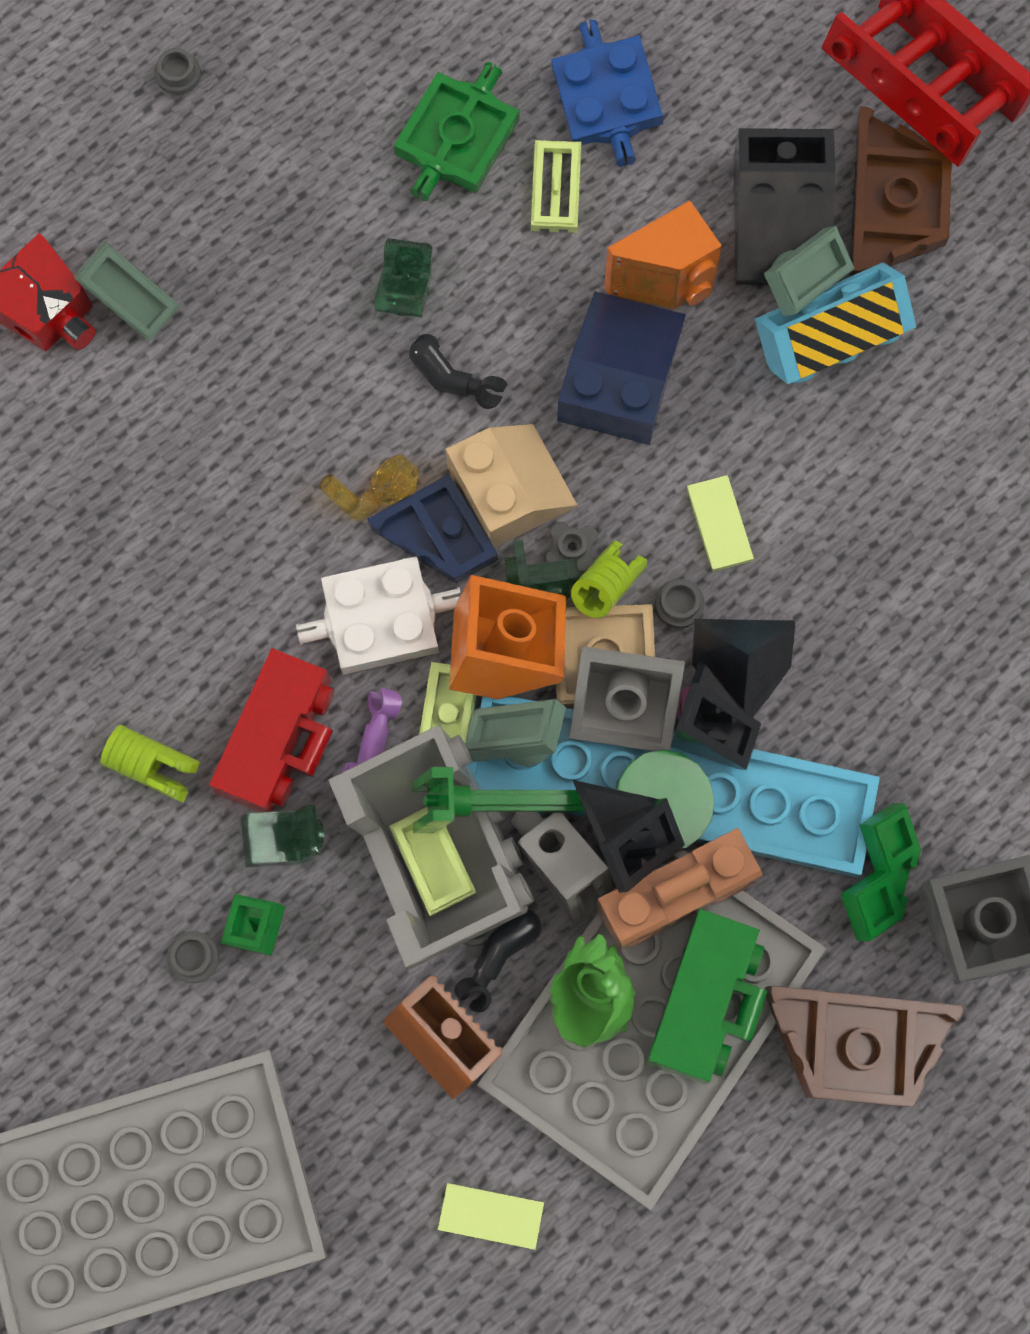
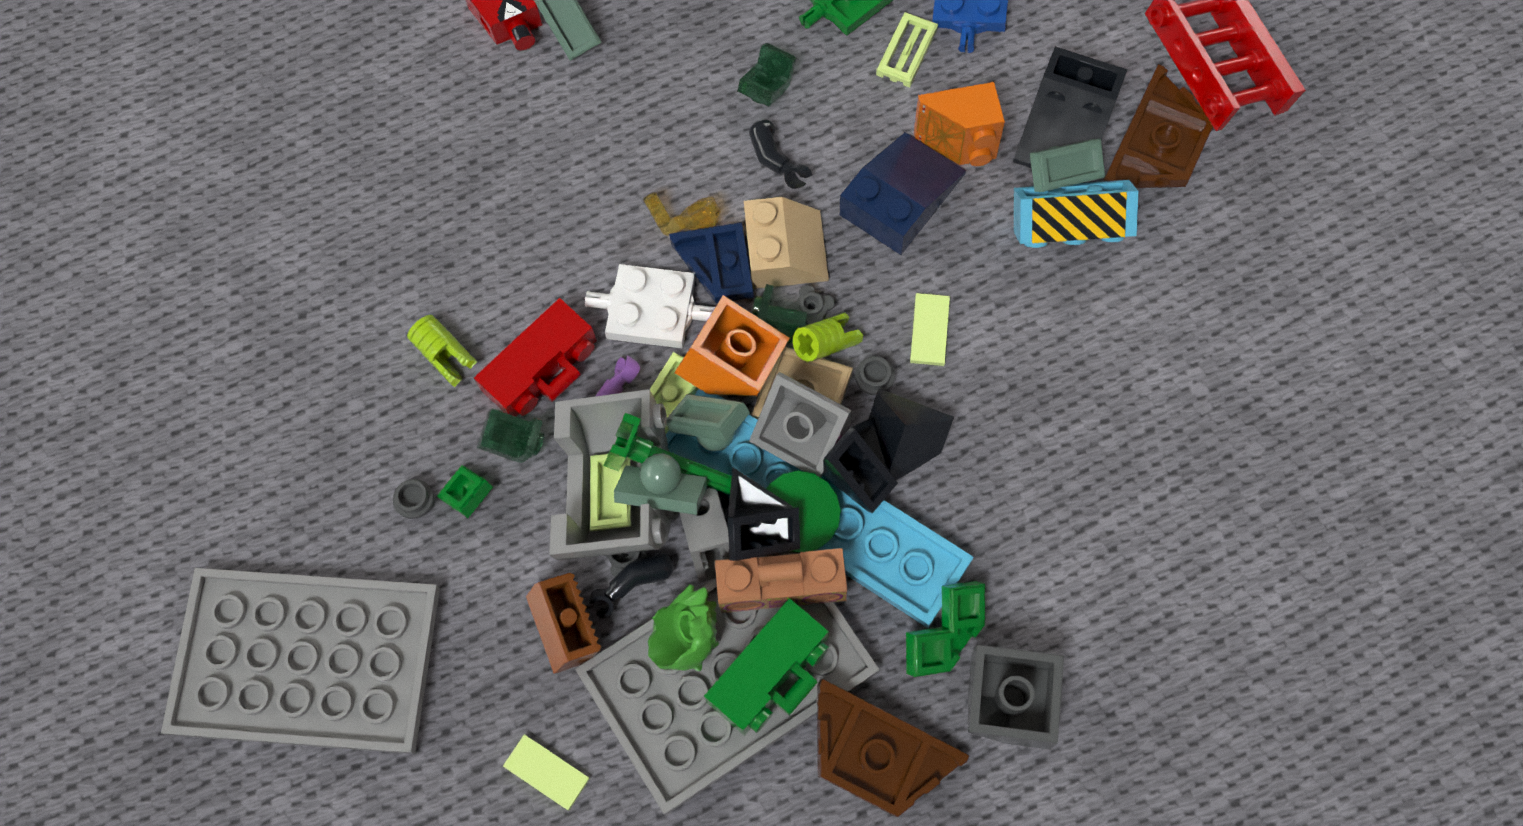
camera: 25 degrees right, 5 degrees down
(499, 835) = (660, 486): none -> sand green tile

